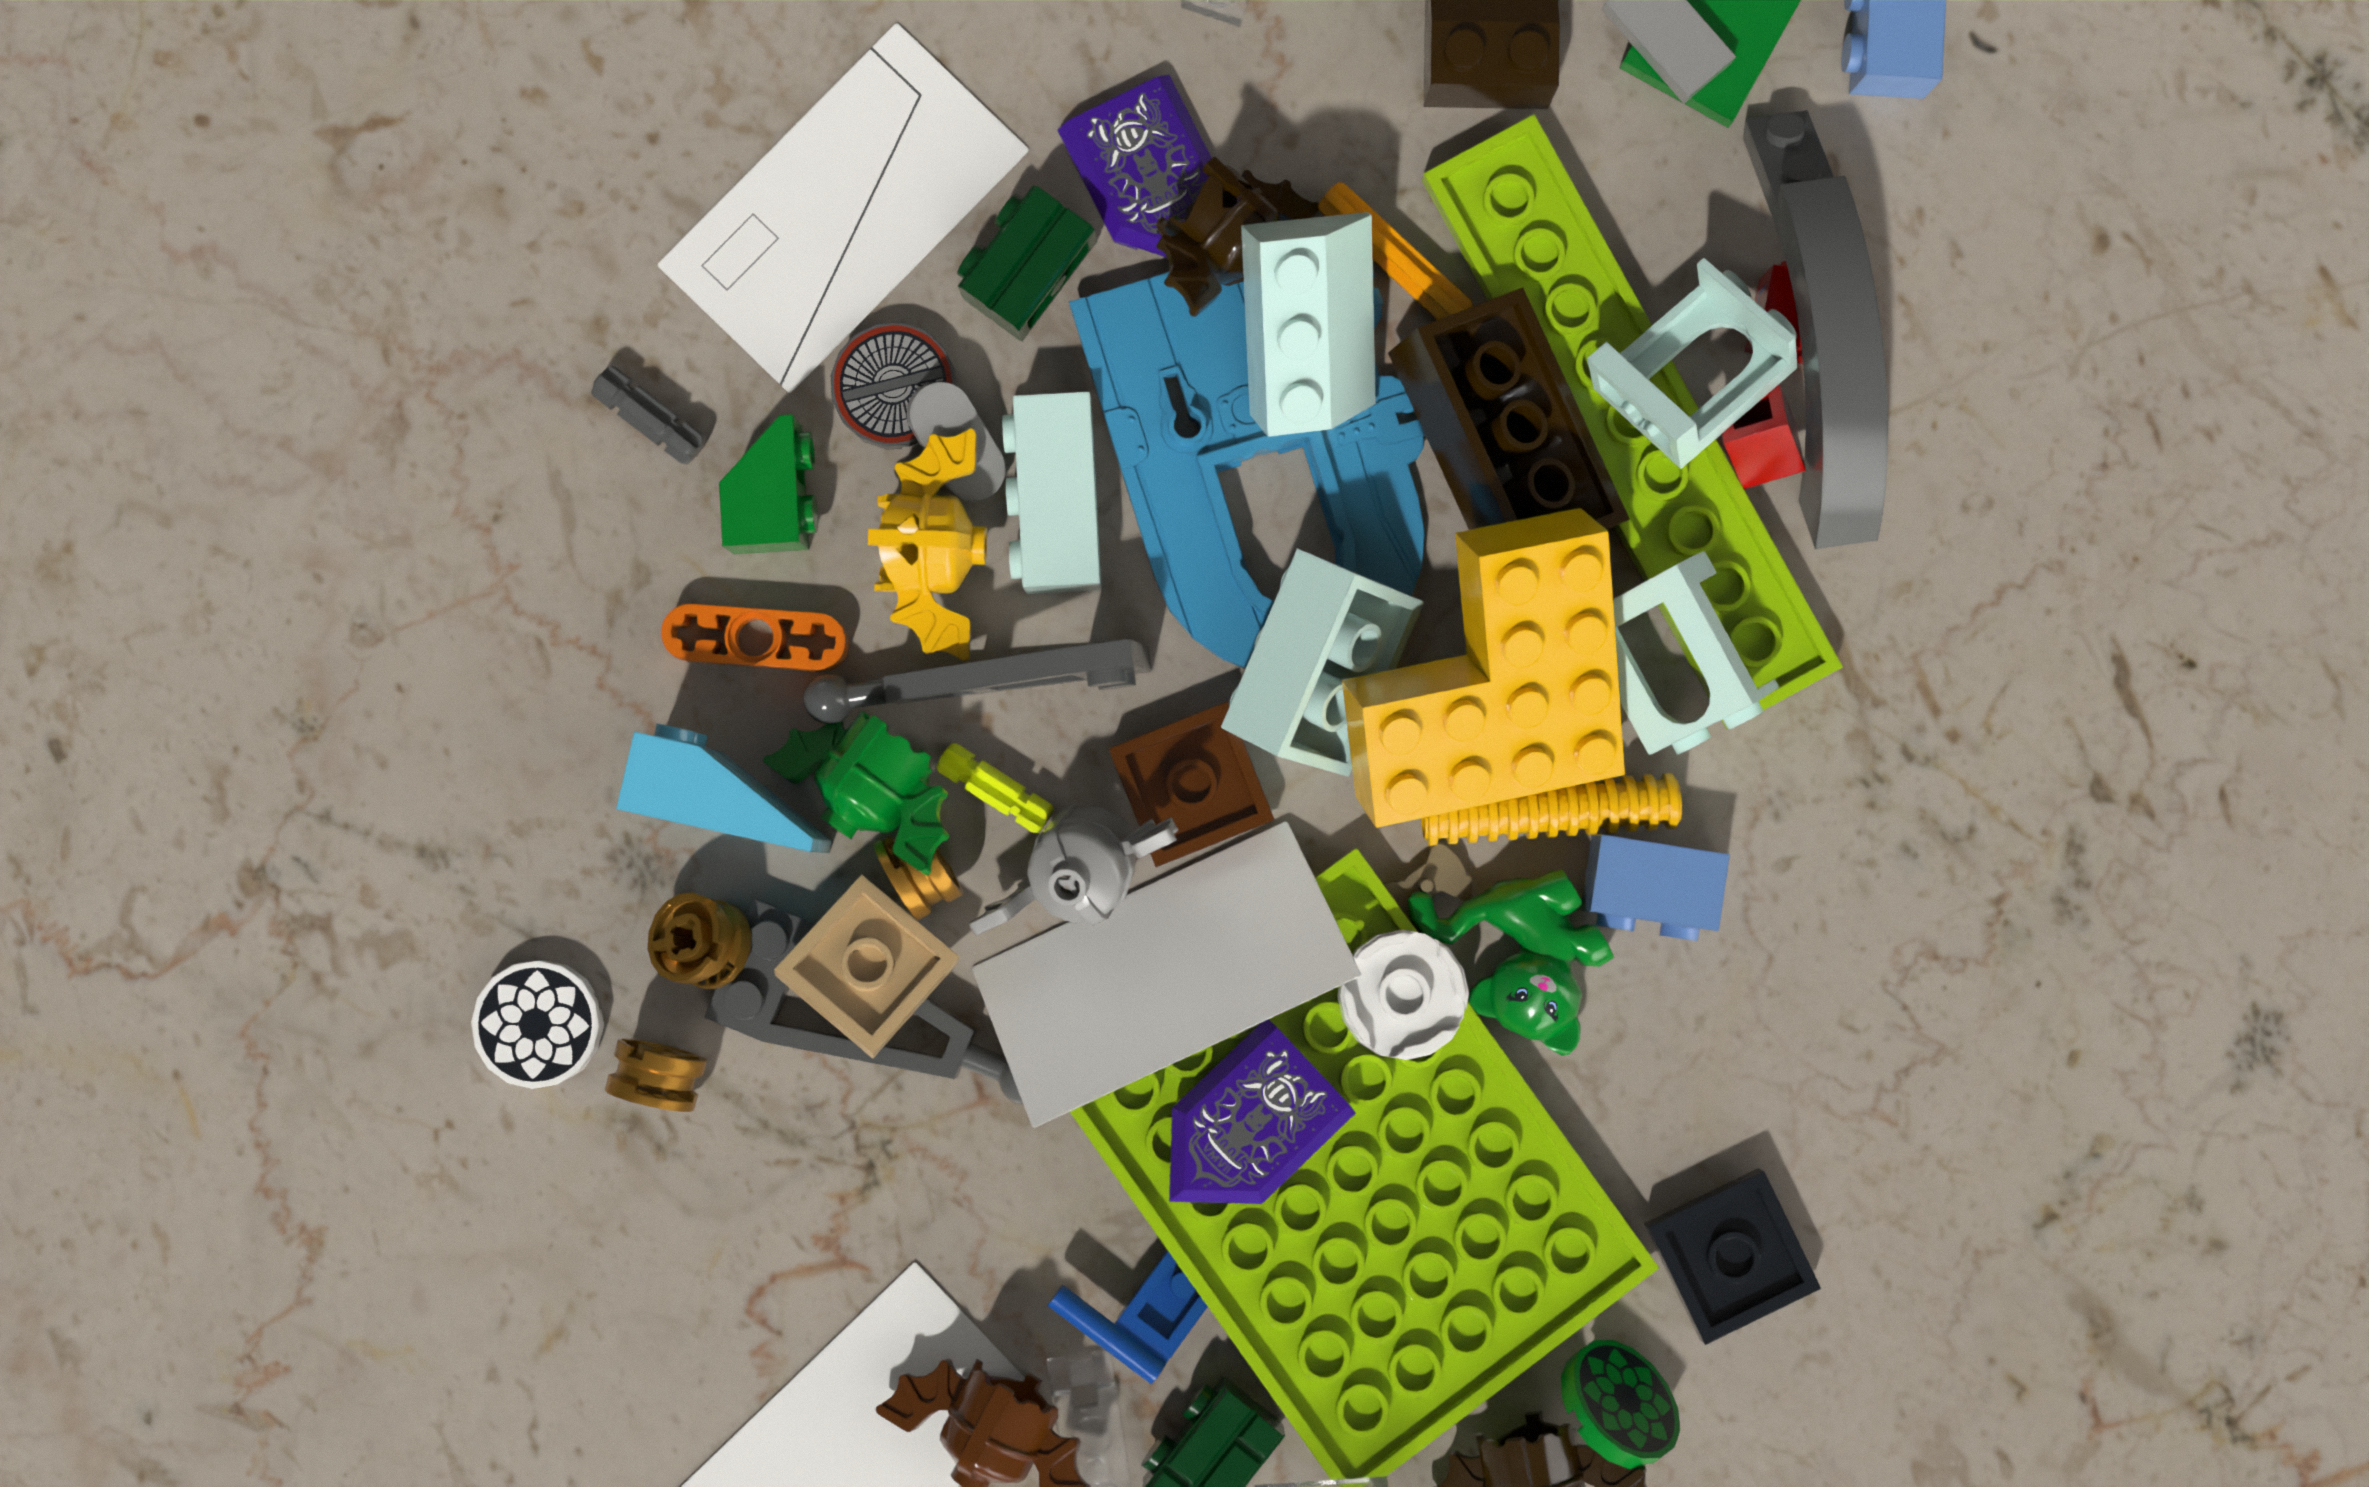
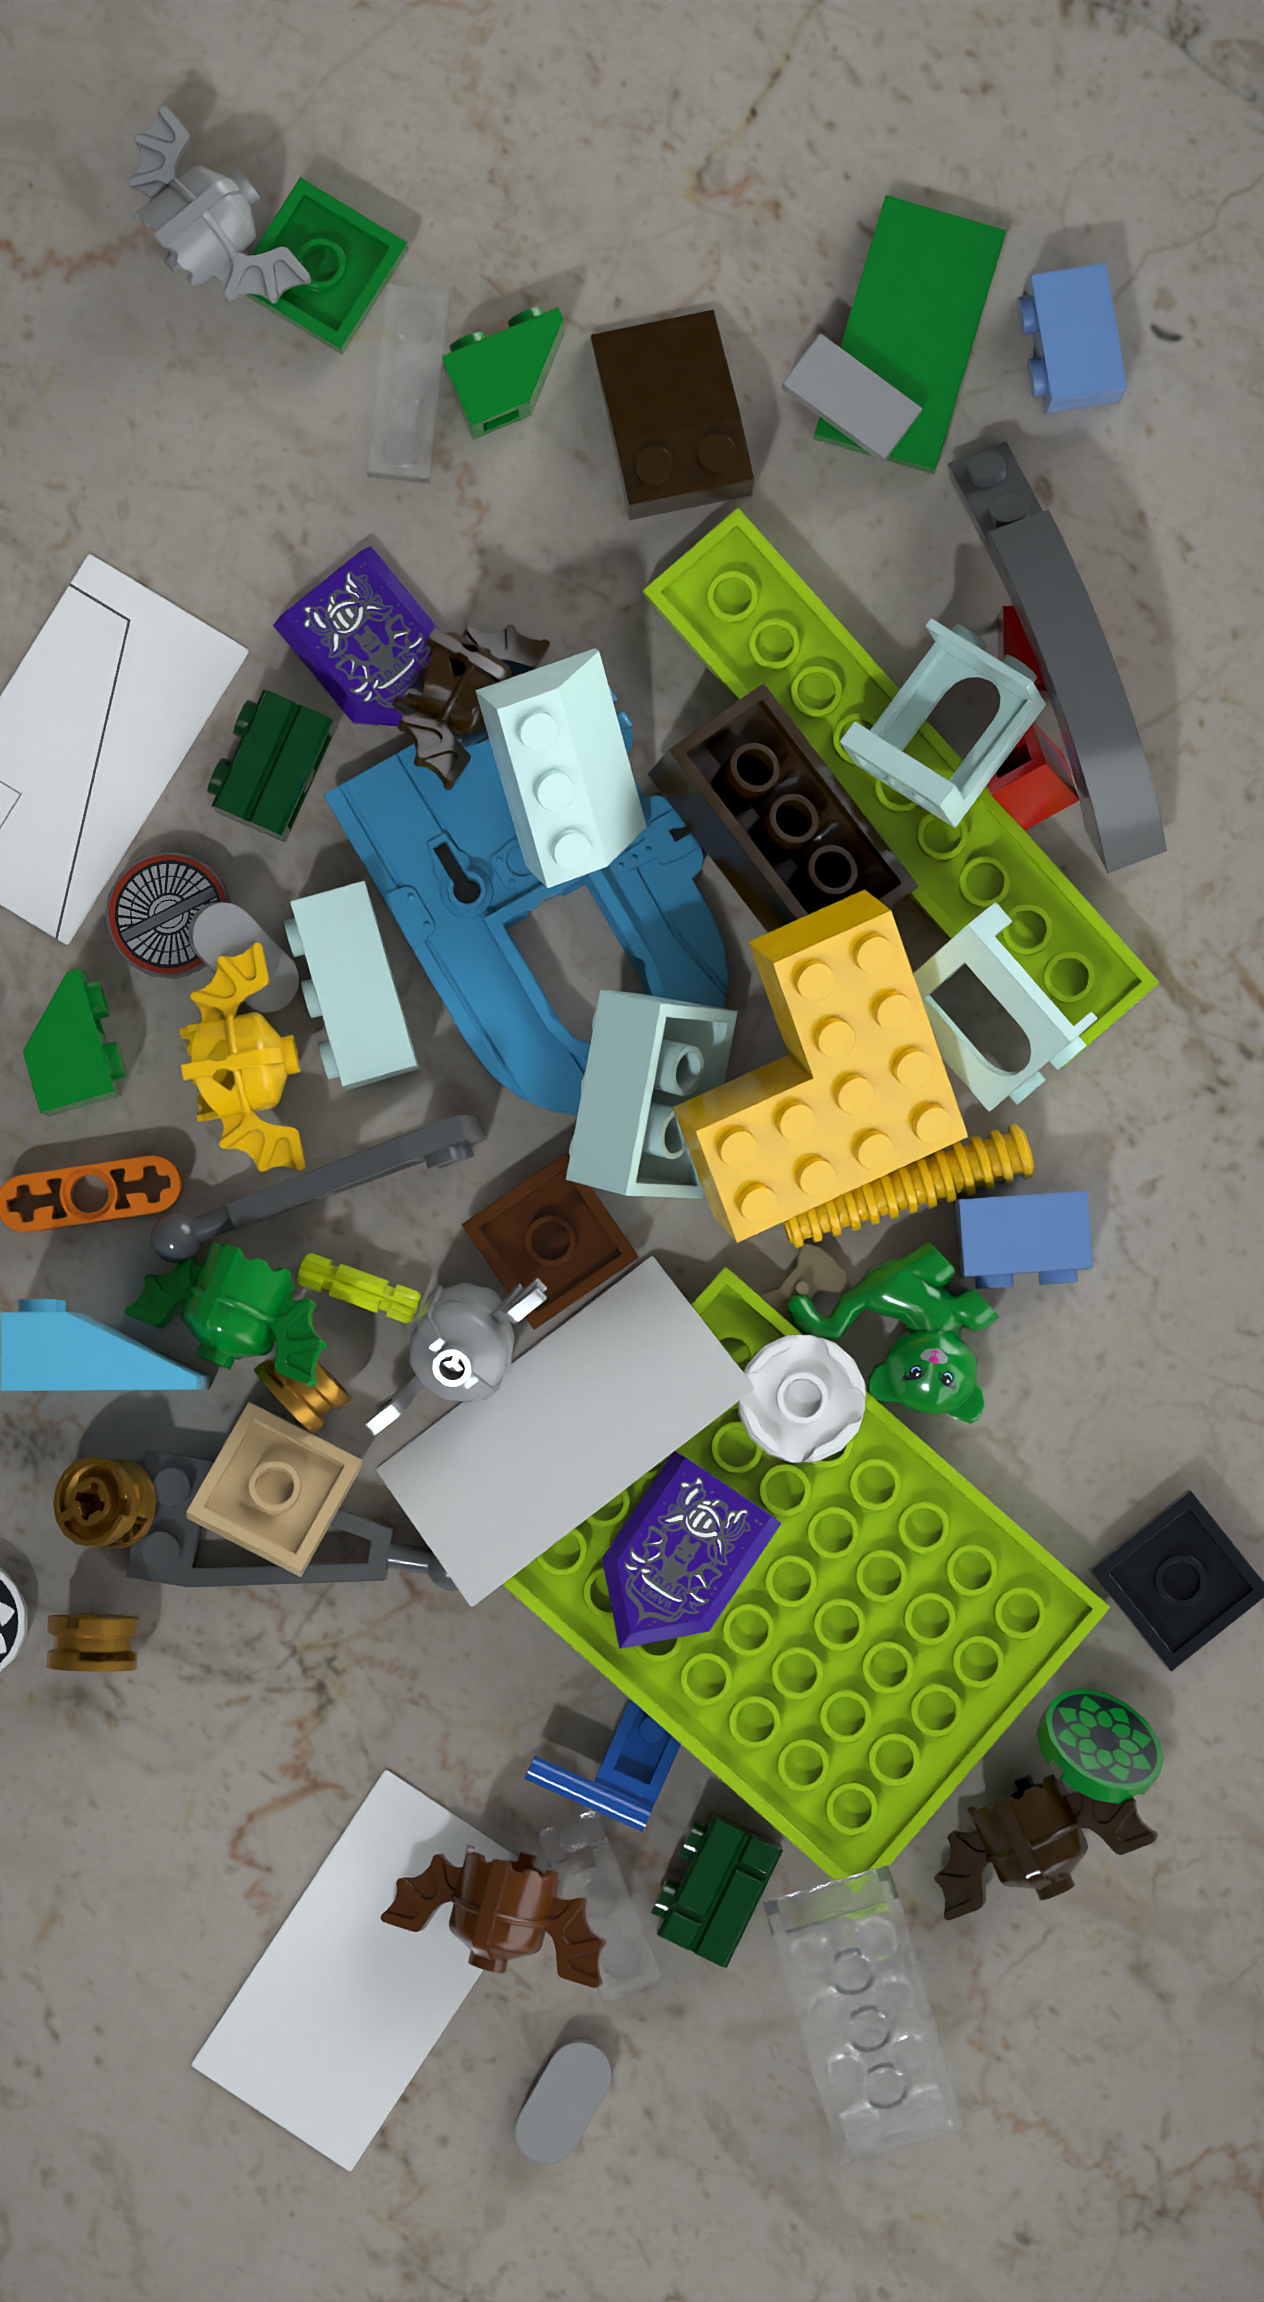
camera: 15 degrees left, 0 degrees up
(1399, 257) = (635, 675): light orange axle -> none

